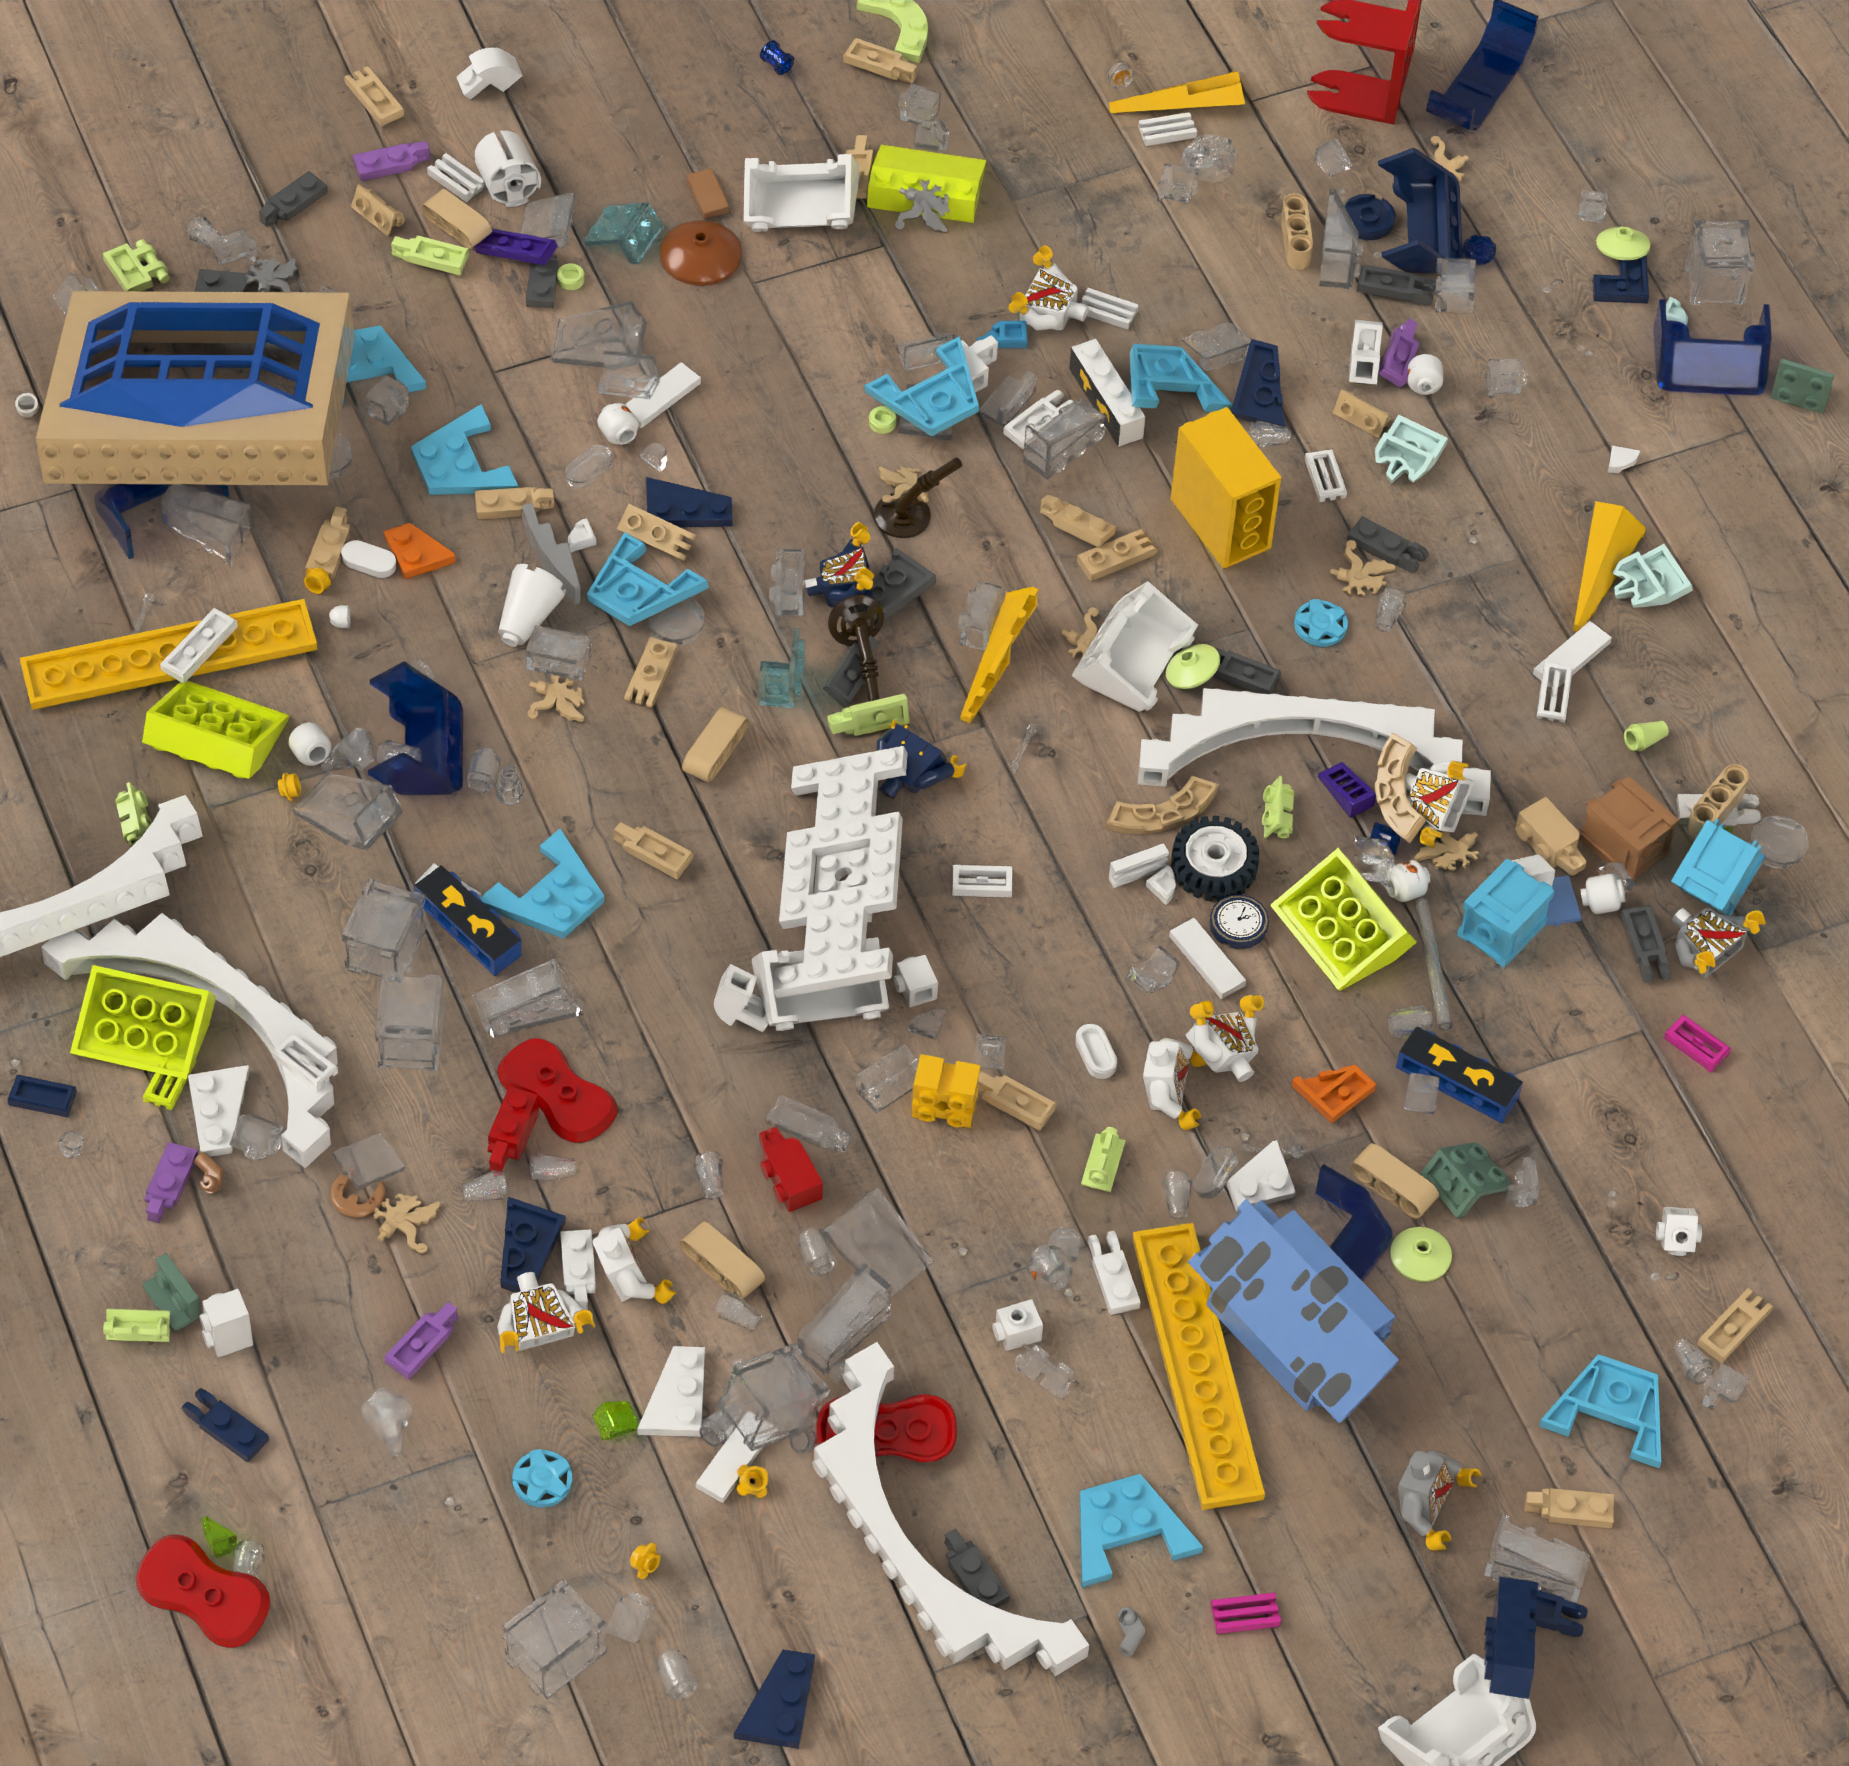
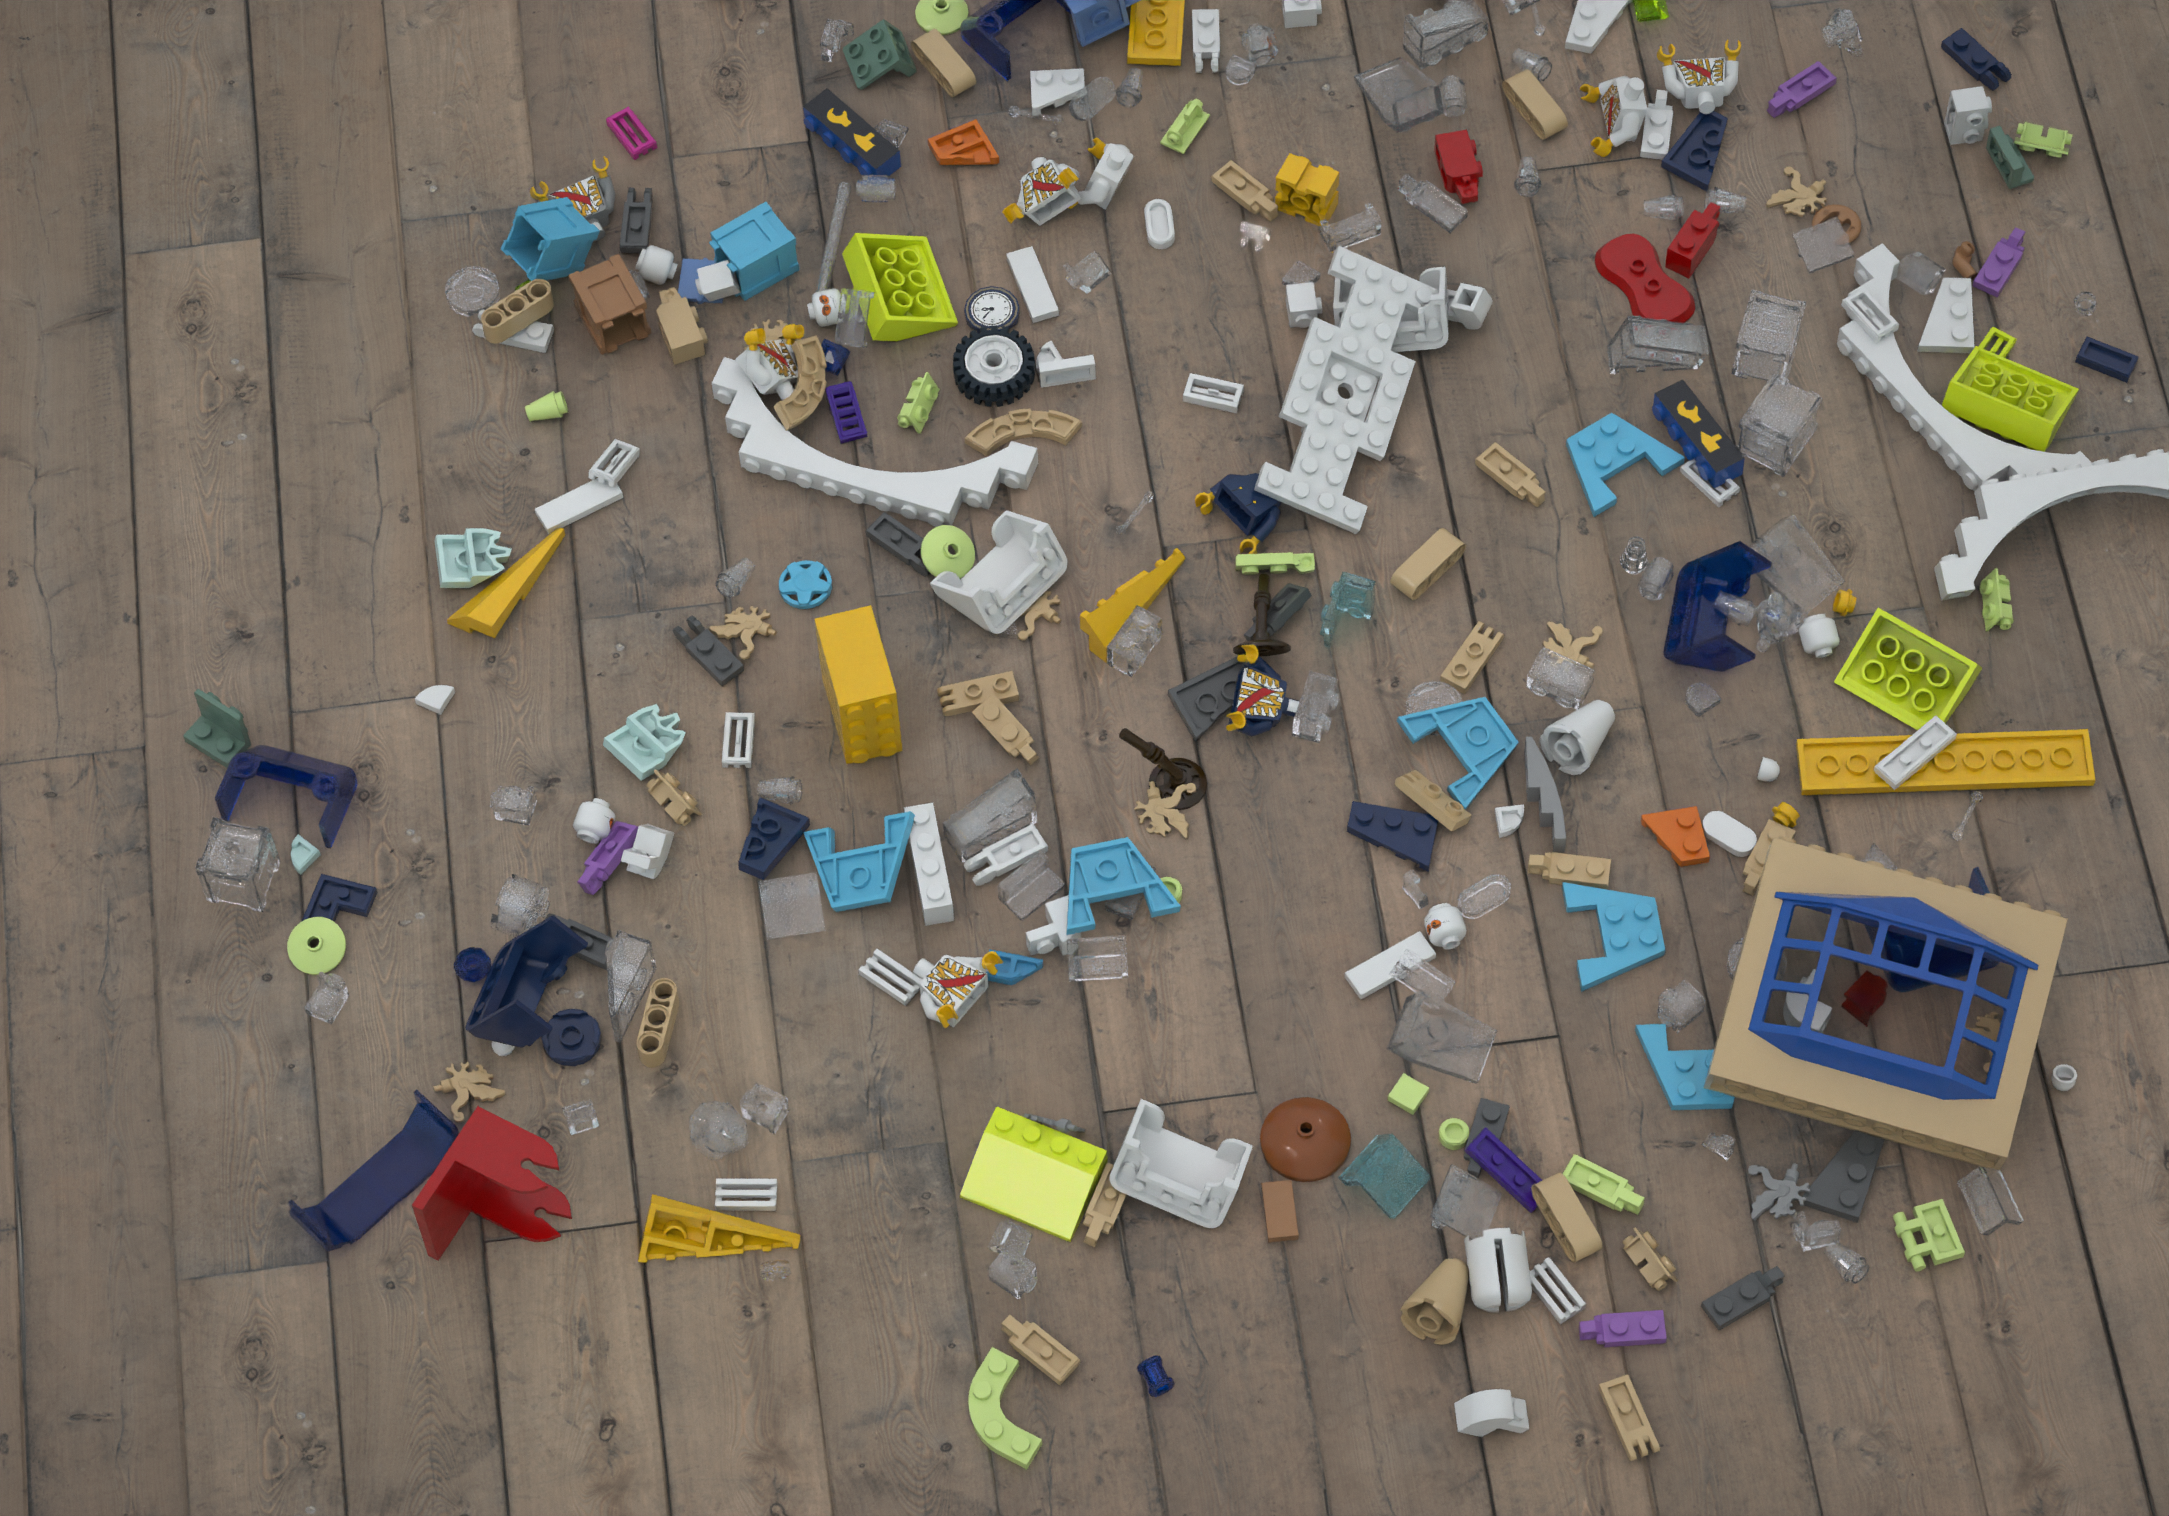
camera: 160 degrees left, 5 degrees up
(552, 135) = (1438, 1303): none -> tan cone
(617, 294) = (1408, 1094): none -> yellowish green tile

